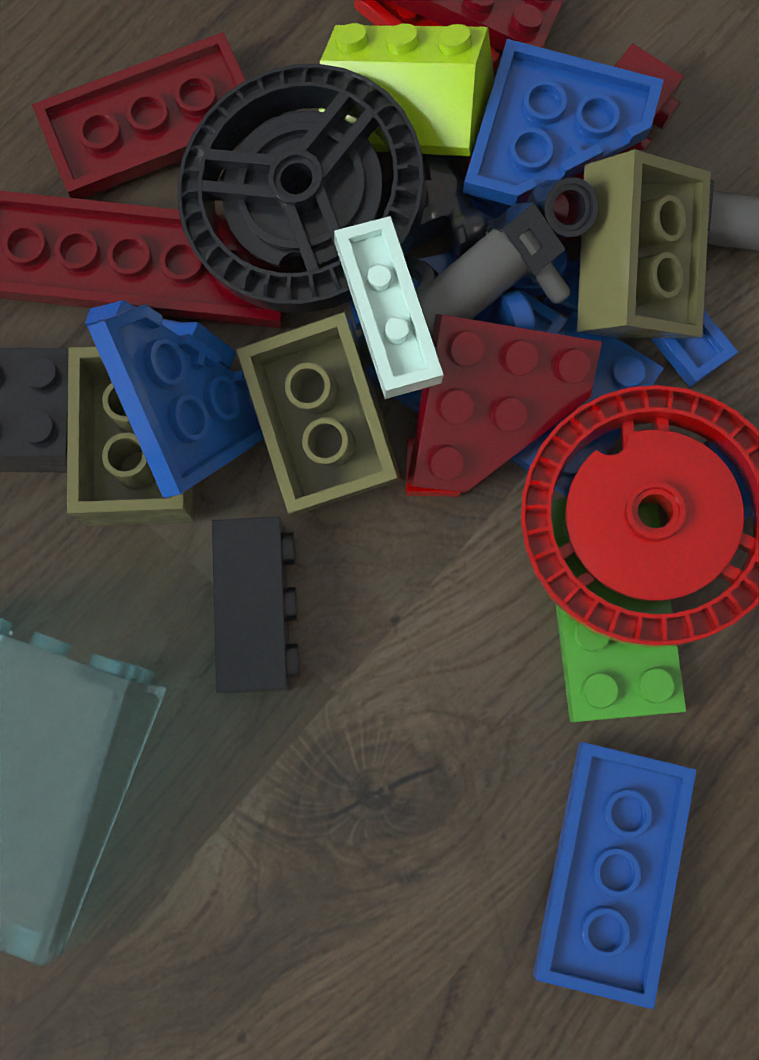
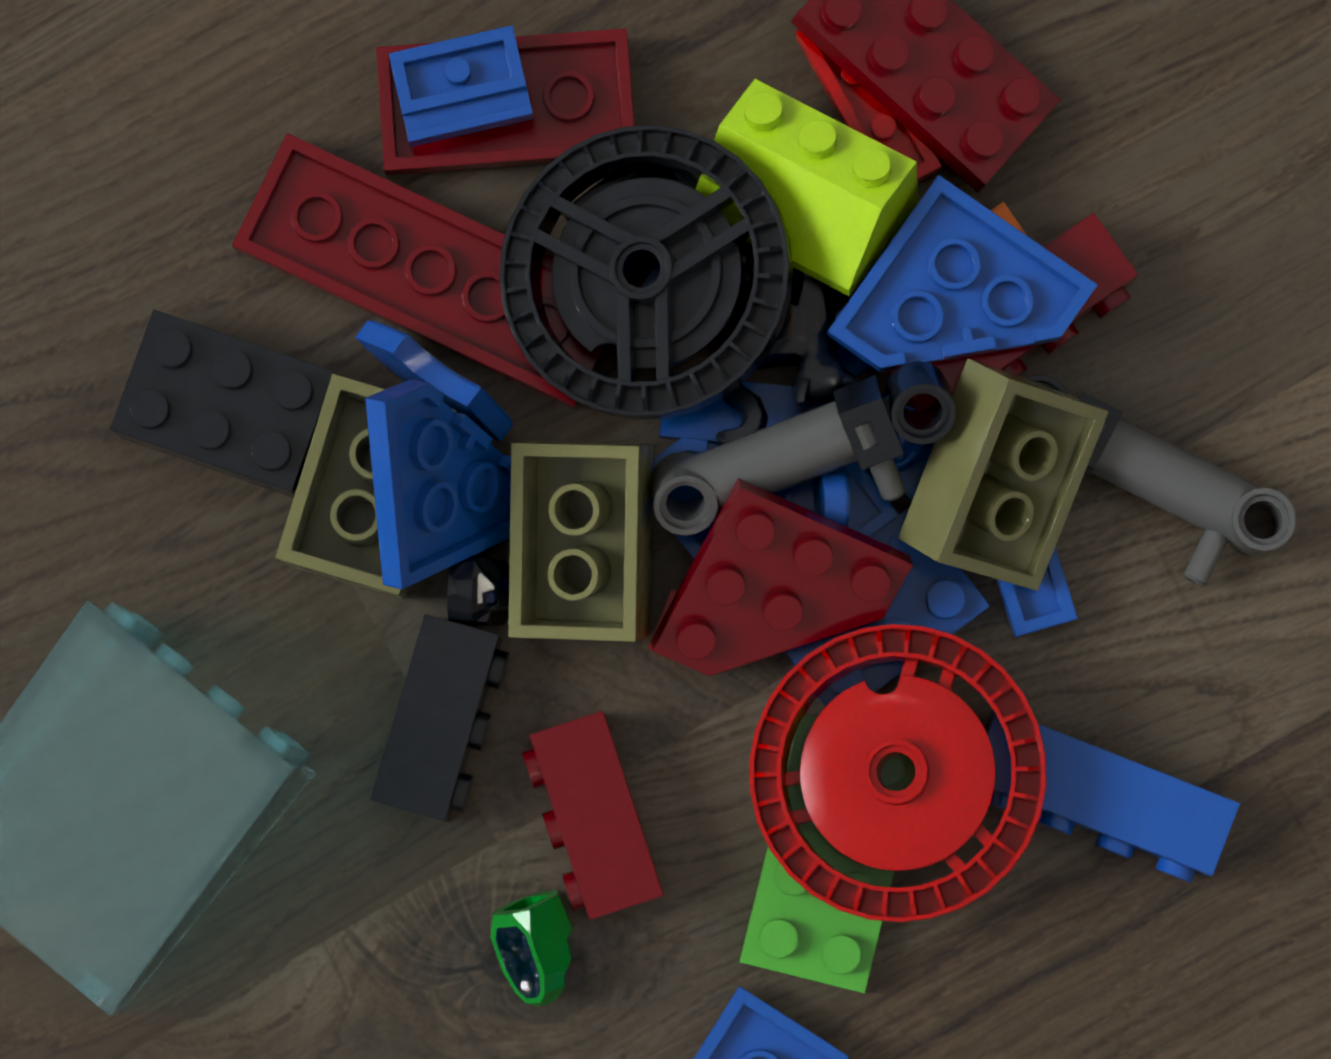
camera: 25 degrees right, 5 degrees up
(106, 103) = (461, 86): none -> blue plate
(251, 488) = (478, 592): none -> black rock
(388, 307) = (684, 460): light aqua plate -> none
(397, 769) = (533, 946): none -> green rock
(410, 642) = (592, 816): none -> dark red brick

